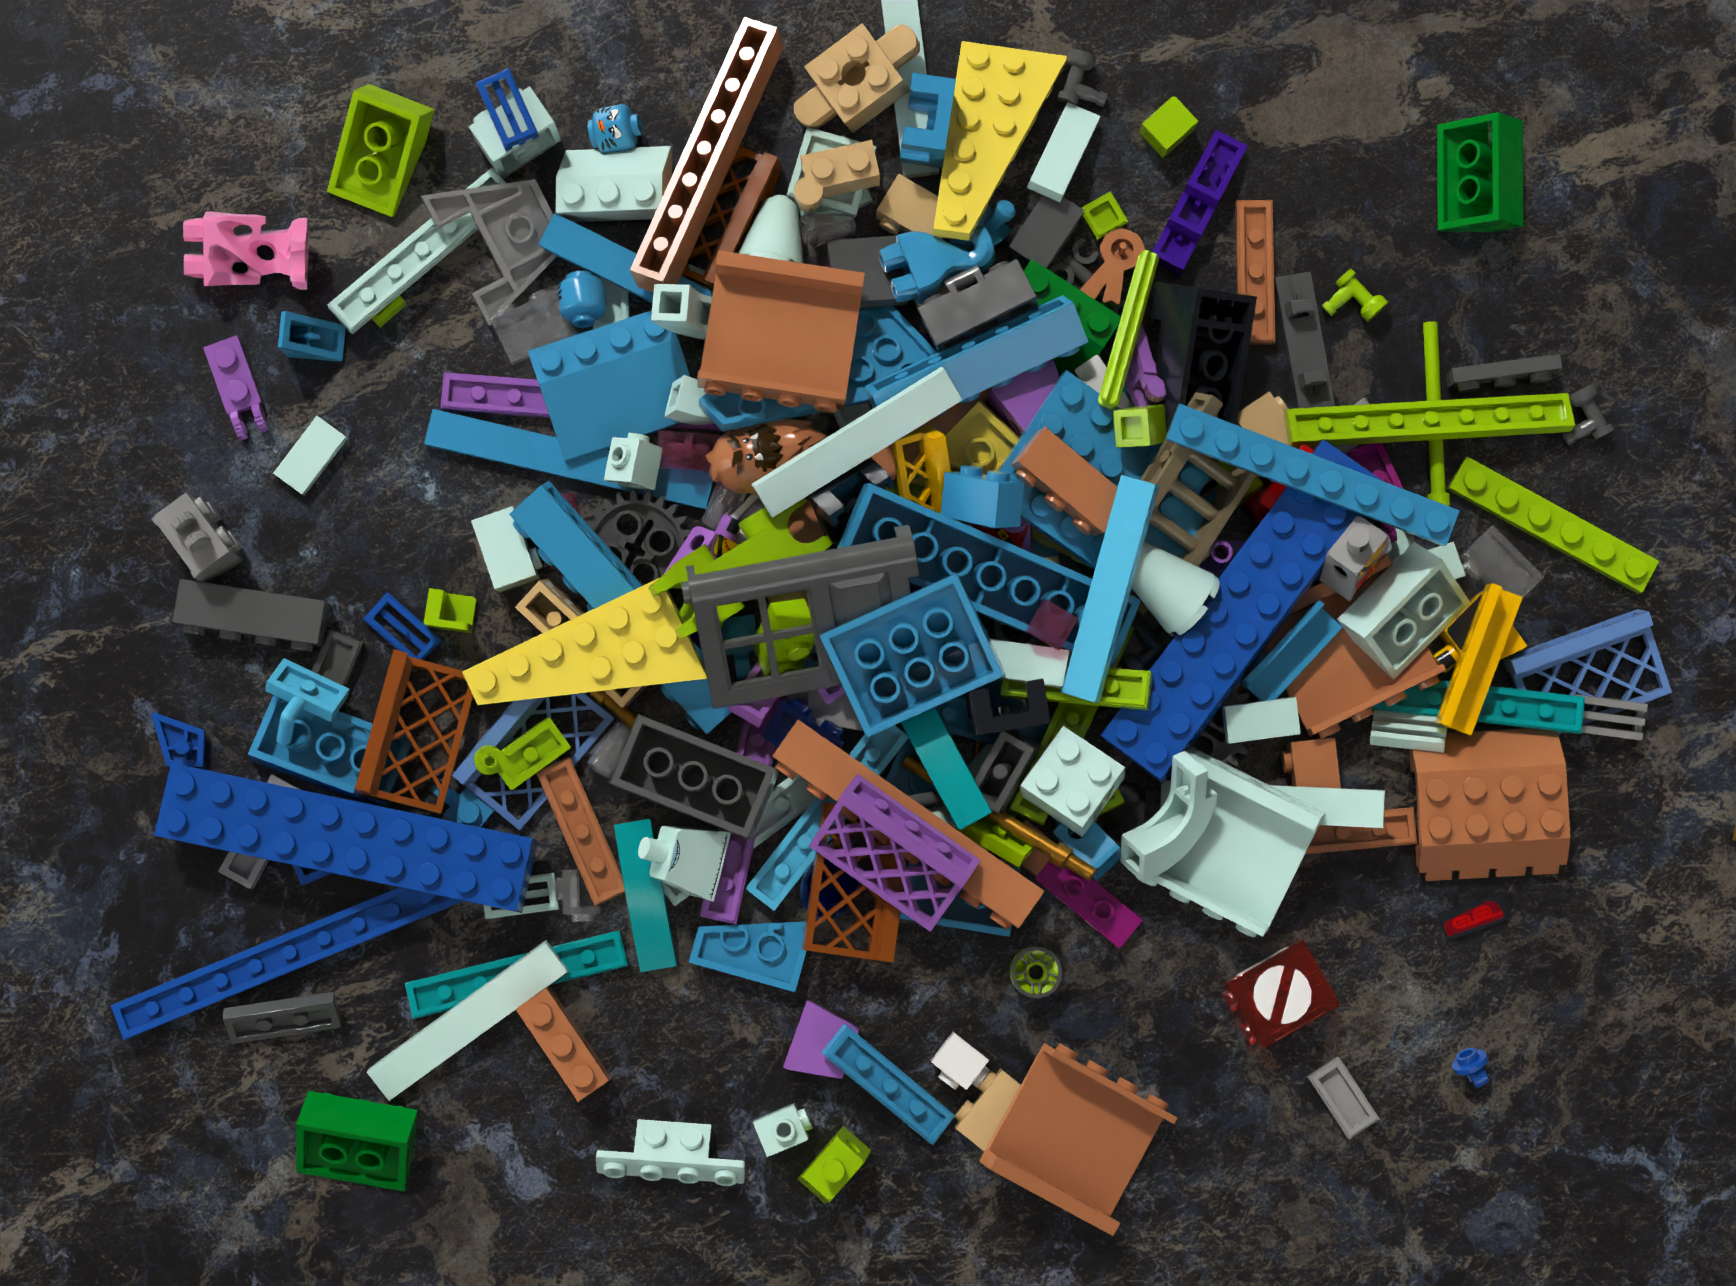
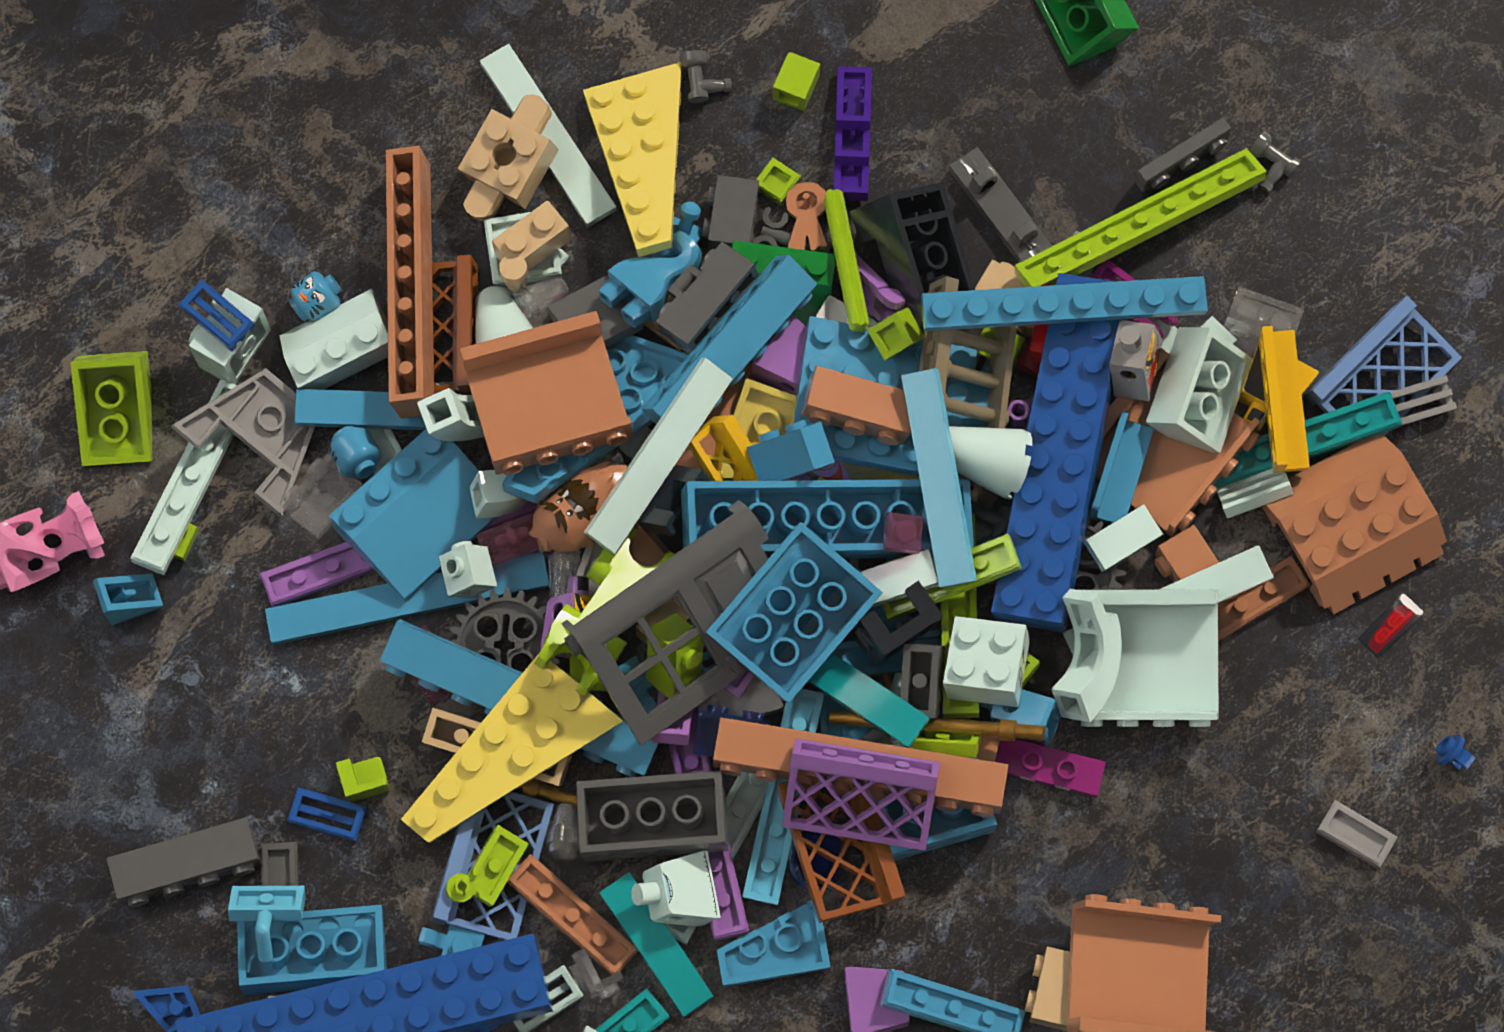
camera: 25 degrees left, 10 degrees down
(198, 538) = (105, 814): light grey hinge -> none
(236, 384) = (76, 667): medium lavender hinge -> none
(310, 455) = (173, 700): light aqua tile -> none
(383, 733) = (354, 910): dark orange fence -> none
(506, 551) = (389, 700): light aqua brick -> none
(907, 208) = (604, 247): tan brick -> none
(935, 97) = (600, 171): dark azure panel -> none
(960, 1063) = (1007, 960): white brick -> none
(1050, 969) = (1047, 843): wheel -> none
(1063, 152) = (717, 141): light aqua tile -> none
(1256, 264) = (927, 160): nougat tile -> none
(1279, 994) = (1256, 769): clear red brick -> none
(1350, 288) = (1018, 144): lime piece -> none
(1433, 393) = (1131, 198): lime bar -> none
(1553, 525) = (1290, 264): lime plate -> none

